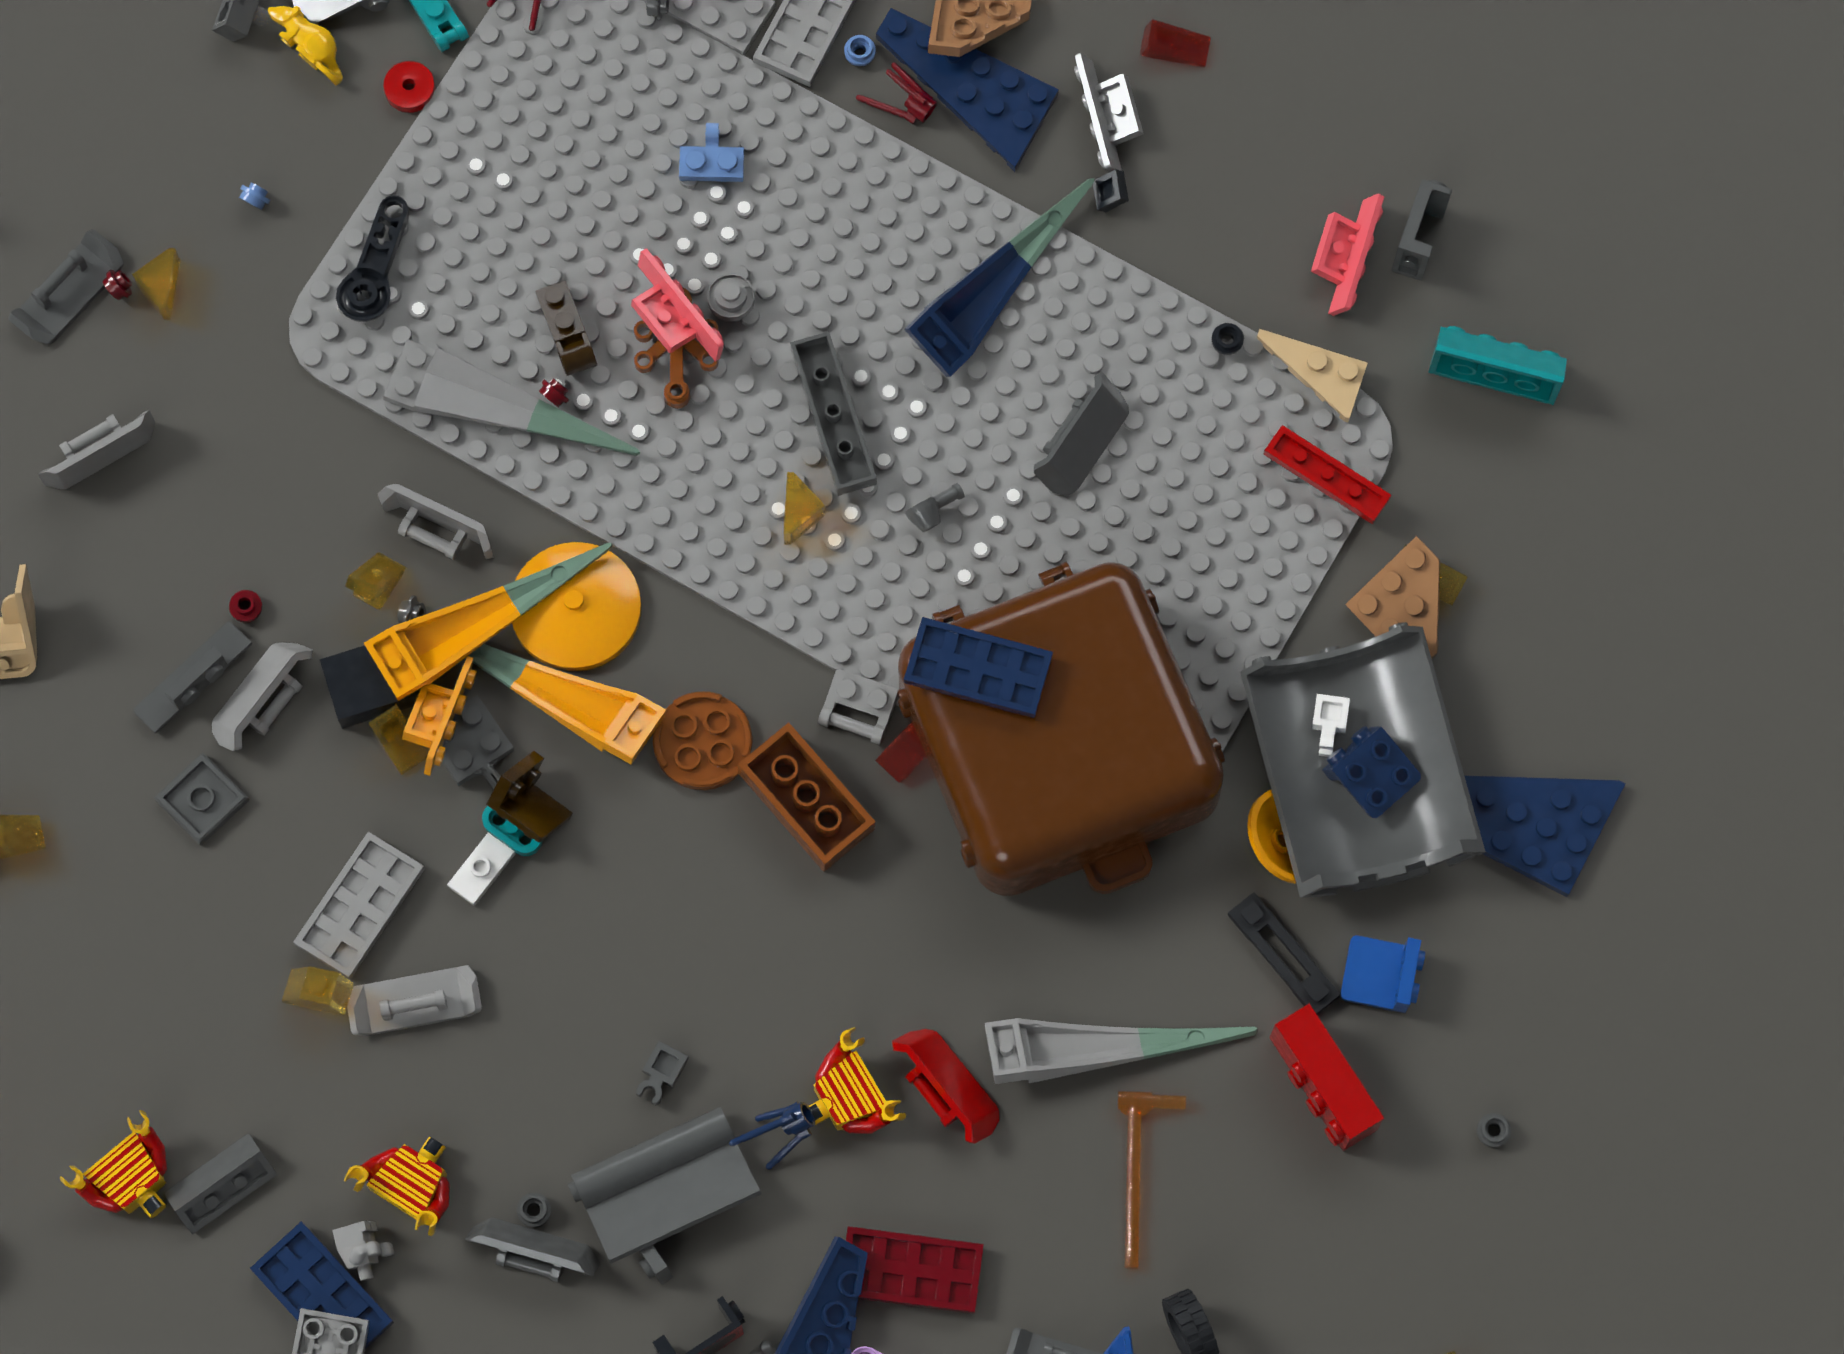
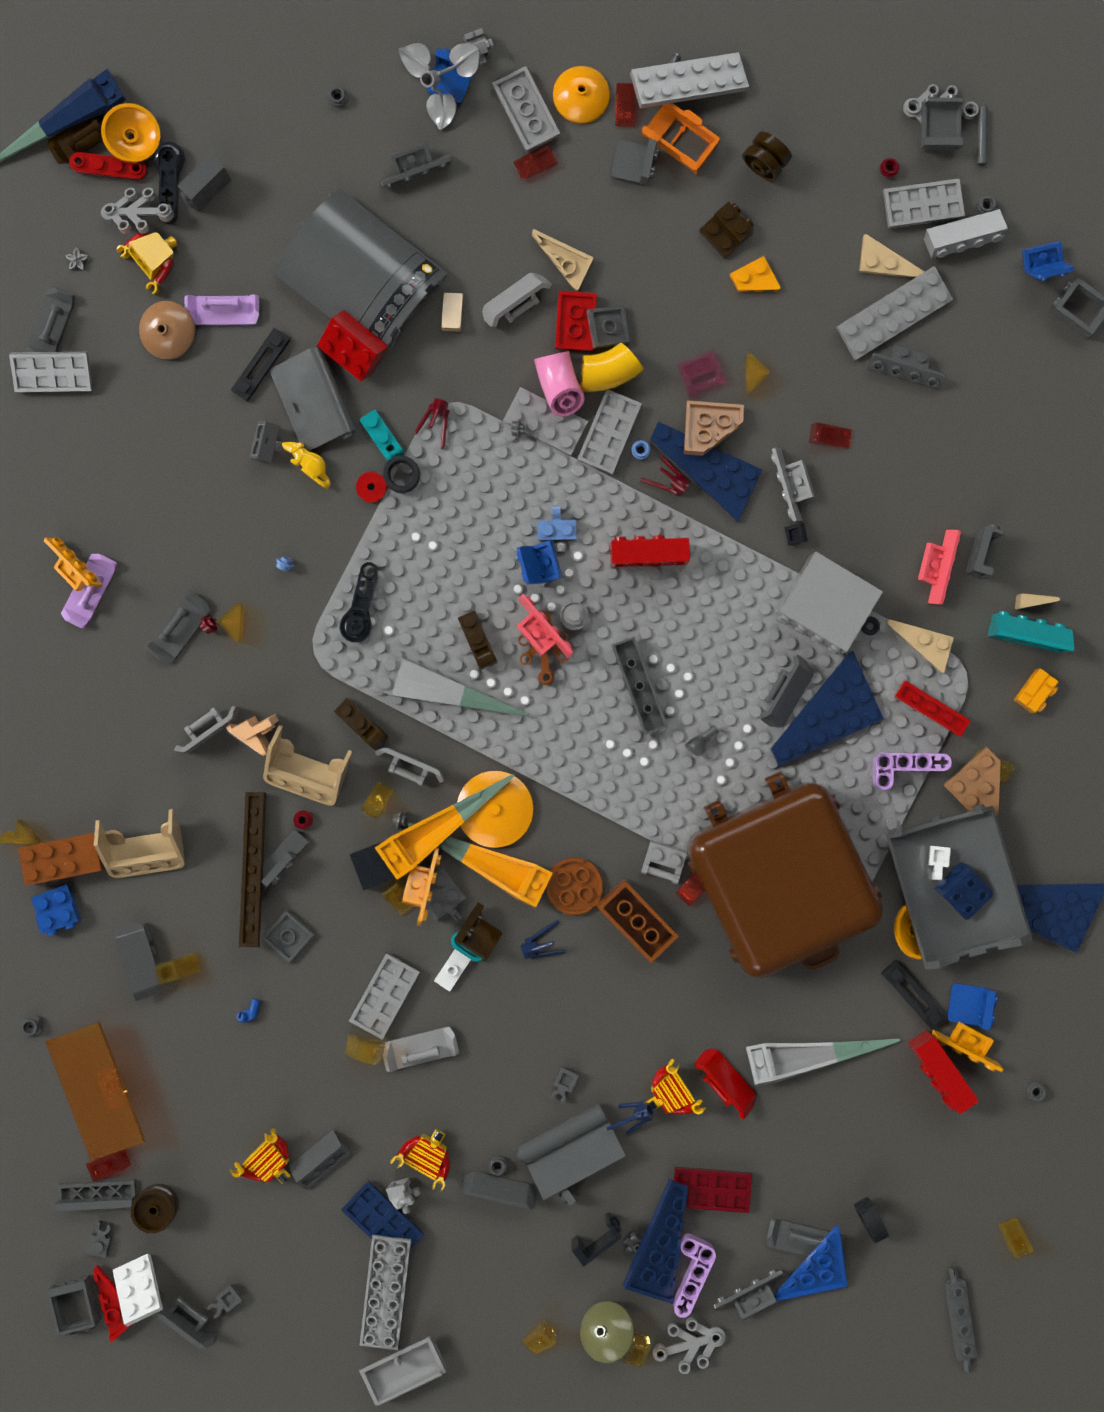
camera: 10 degrees left, 15 degrees up
(122, 925) = (251, 1013): none -> blue arm
(151, 679) = (252, 869): none -> dark brown plate
(173, 452) = (252, 733): none -> light nougat piece
(250, 533) = (302, 774): none -> tan windscreen
(255, 691) = (316, 872): light grey piece -> none
(358, 454) = (361, 724): none -> dark brown plate
(454, 42) = (387, 472): none -> black tyre
(554, 392) = (473, 681): dark red plate -> none
(620, 837) = (531, 949): none -> dark blue plant
(677, 209) = (539, 563): none -> blue bracket
(801, 509) = (623, 746): clear yellow slope -> none
(860, 198) = (649, 552): none -> red brick
(963, 314) = (714, 618): dark blue plate -> none
(978, 667) = (739, 860): dark blue plate -> none
(1134, 1106) = (833, 1088): clear orange bar -> none
(1155, 293) = (828, 603): none -> light grey brick
(1161, 474) = (835, 711): none -> dark blue wing
(1287, 567) = (911, 765): none -> lavender beam
(1380, 1034) = (971, 1042): none -> light orange bracket
(1505, 314) = (1029, 600): none -> tan slope
(1506, 458) = (1036, 691): none -> light orange brick

